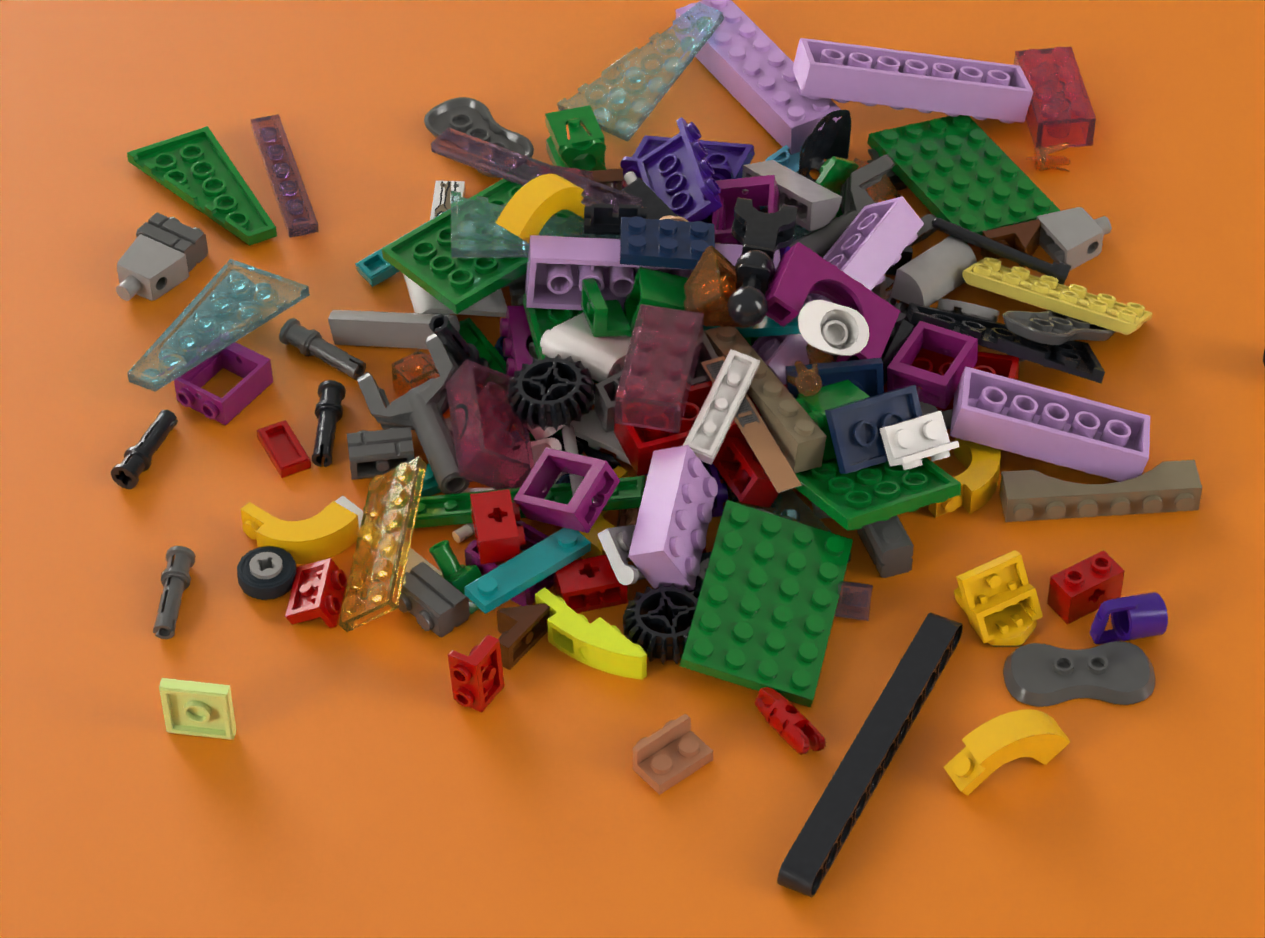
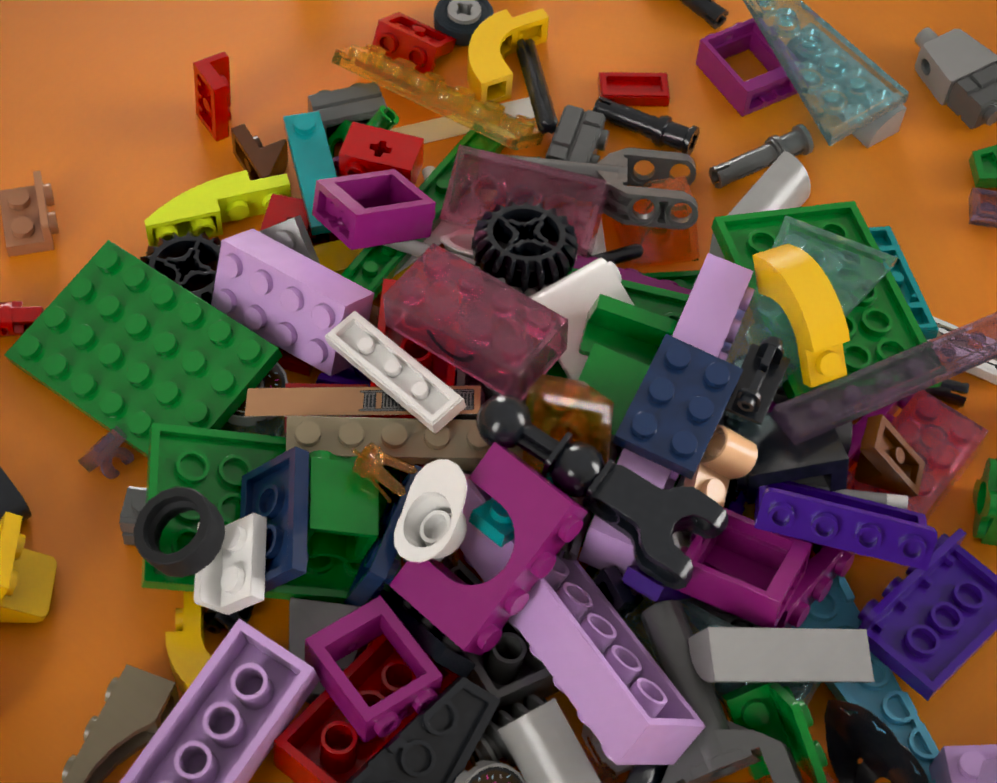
camera: 110 degrees right, 10 degrees up
(332, 491) = (537, 86): none -> black axle
(454, 341) = (665, 237): black pin -> none
(937, 439) = (156, 516): none -> black tyre

